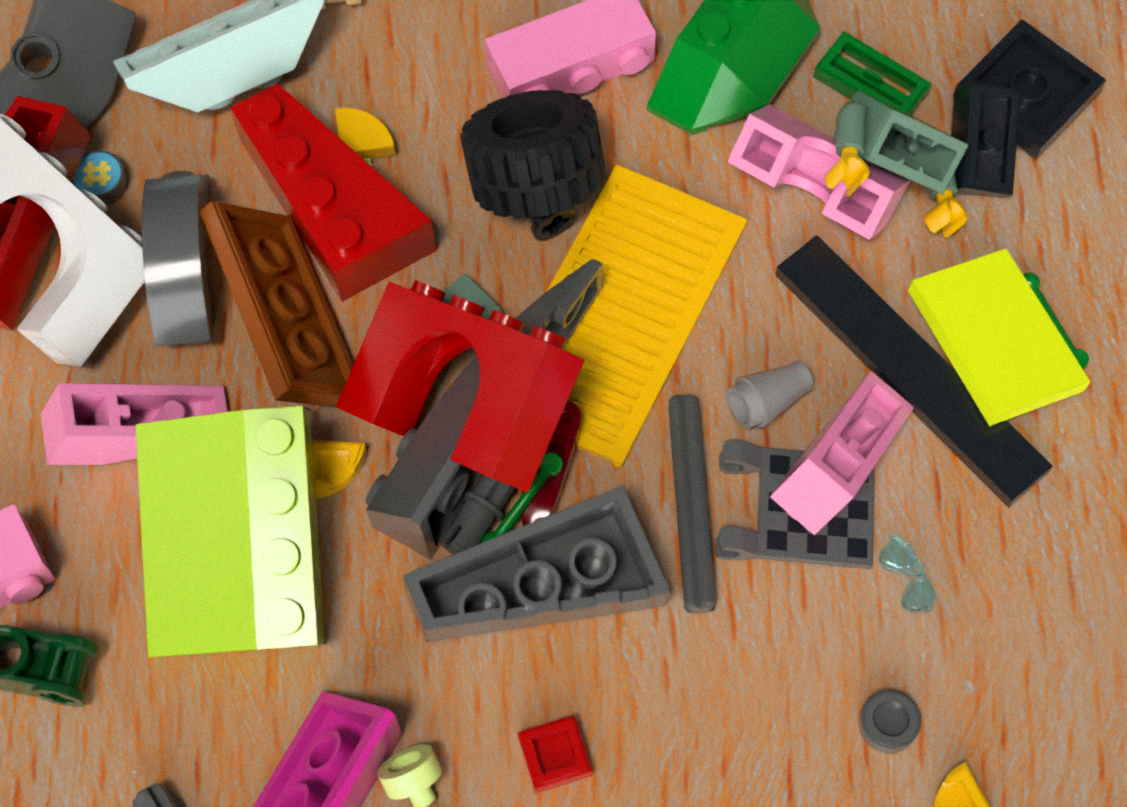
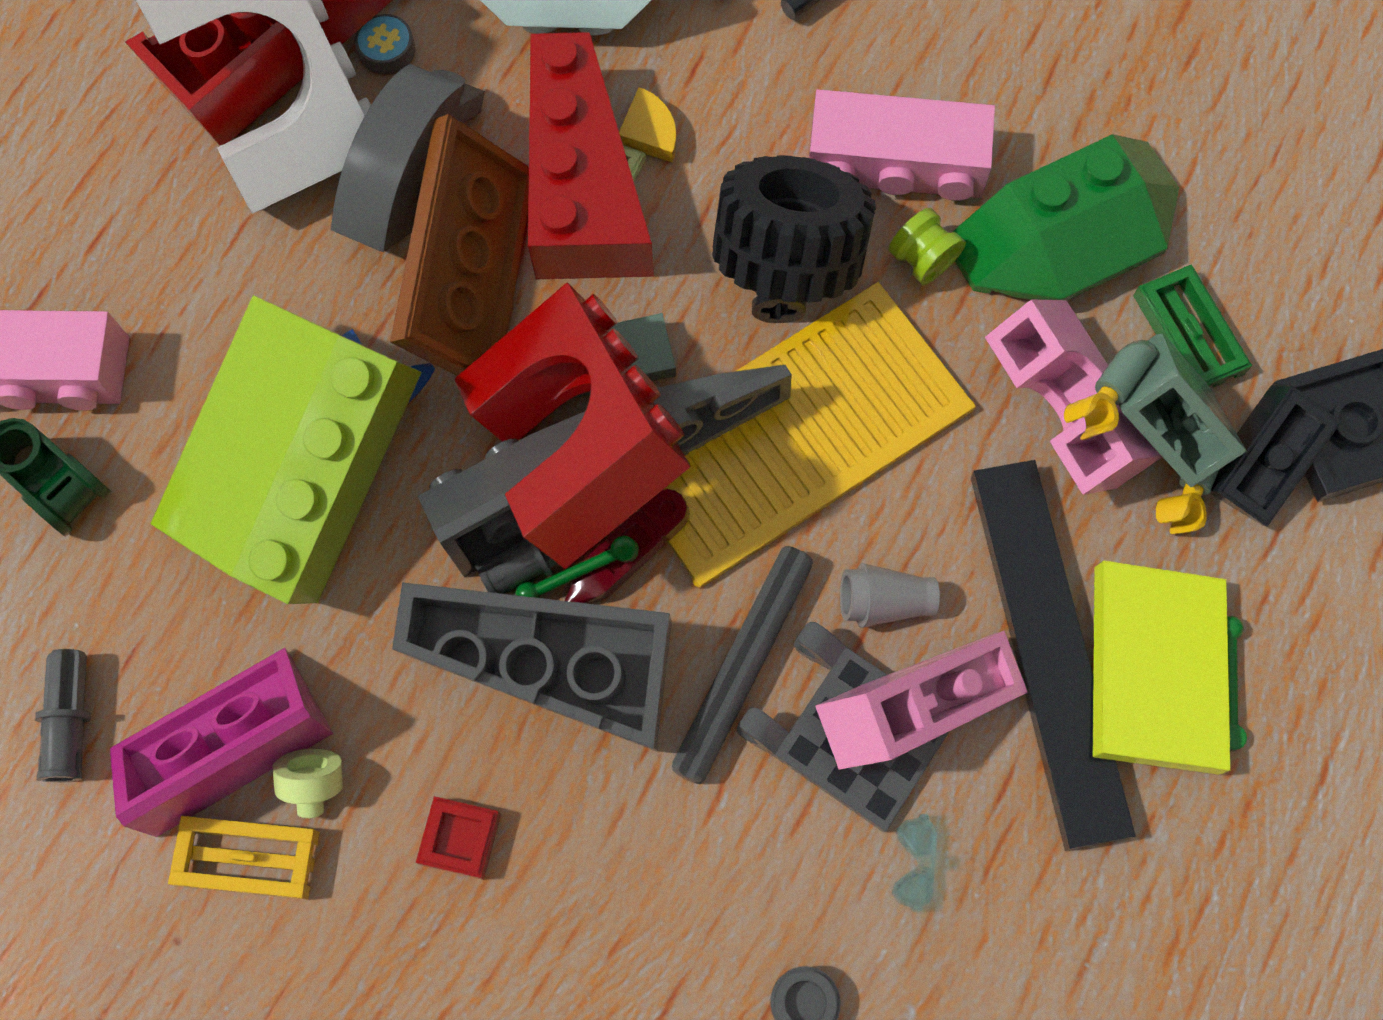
camera: 30 degrees right, 5 degrees up
(98, 420) = (226, 270): bright pink slope -> none
(336, 465) = (426, 434): yellow tile -> none
(639, 117) = (926, 246): none -> lime wheel

